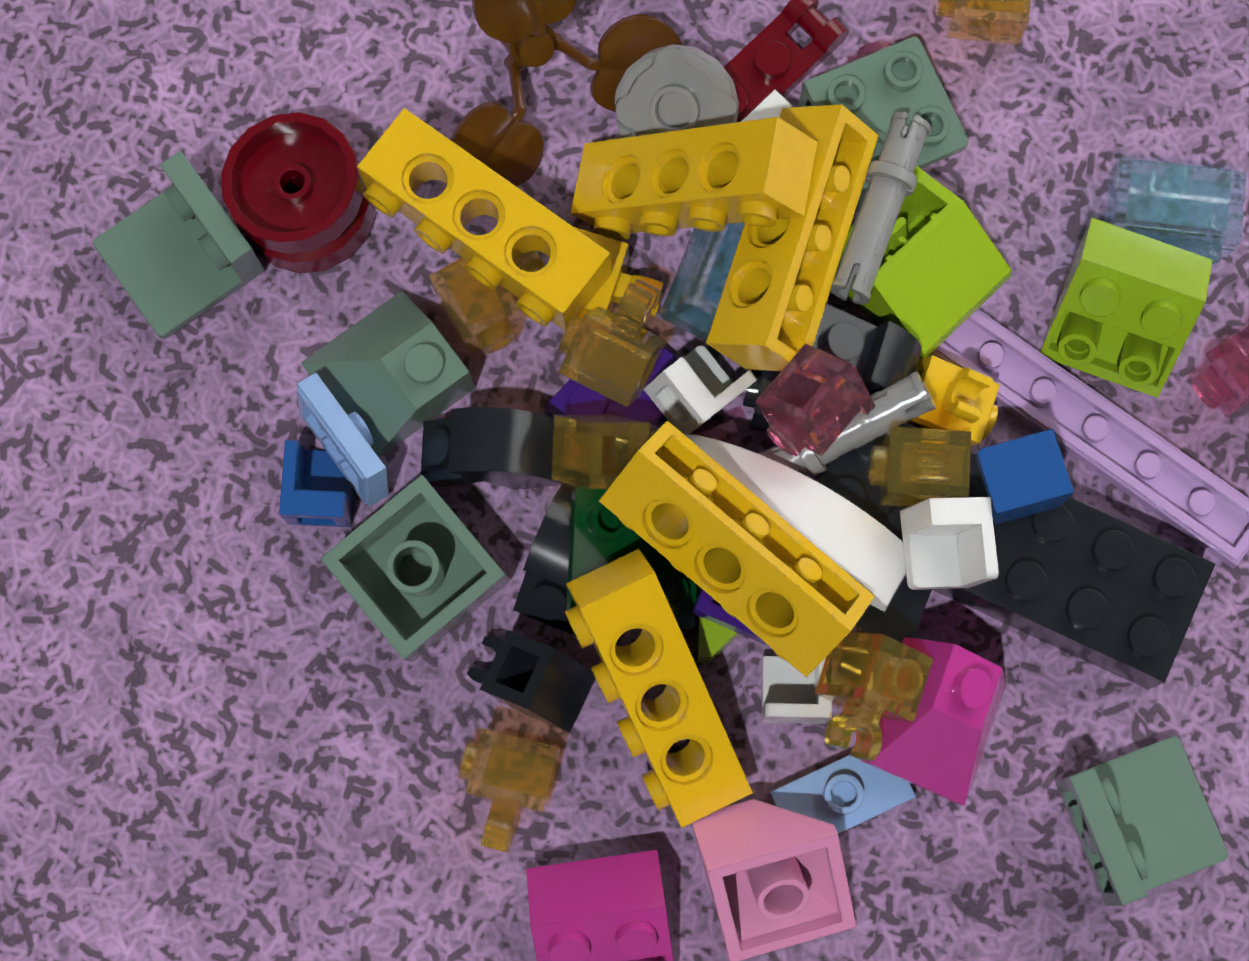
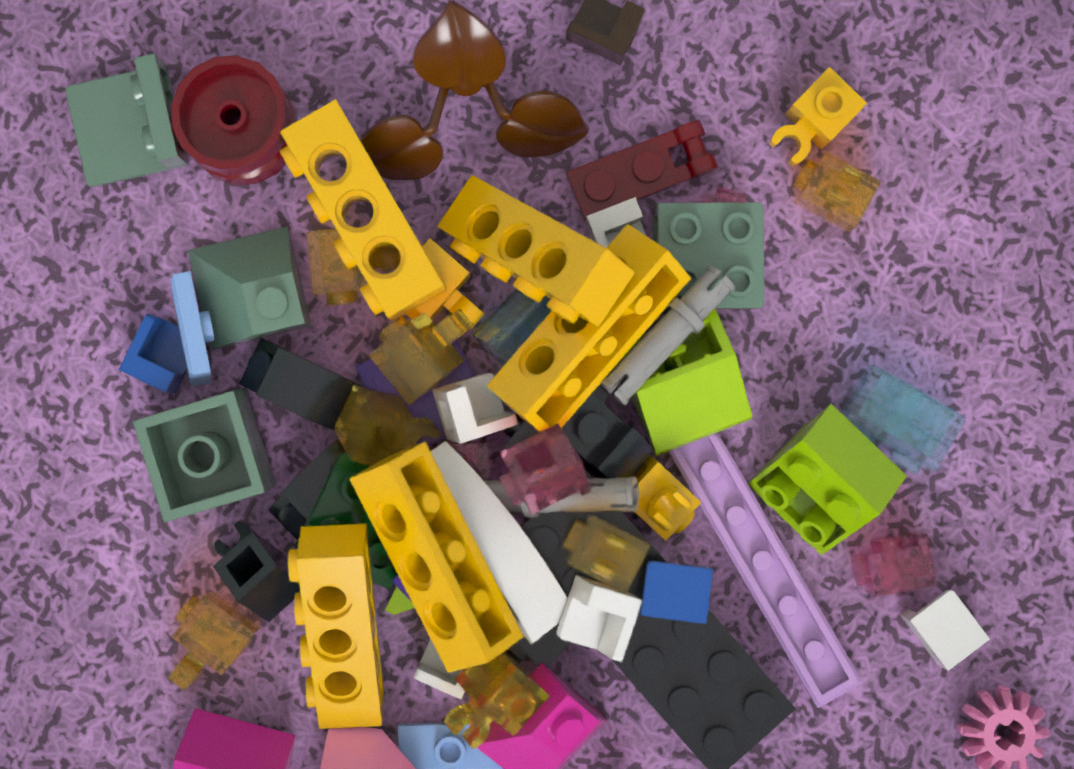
camera: 20 degrees right, 10 degrees up
(673, 92) = (556, 173): light grey tile -> none

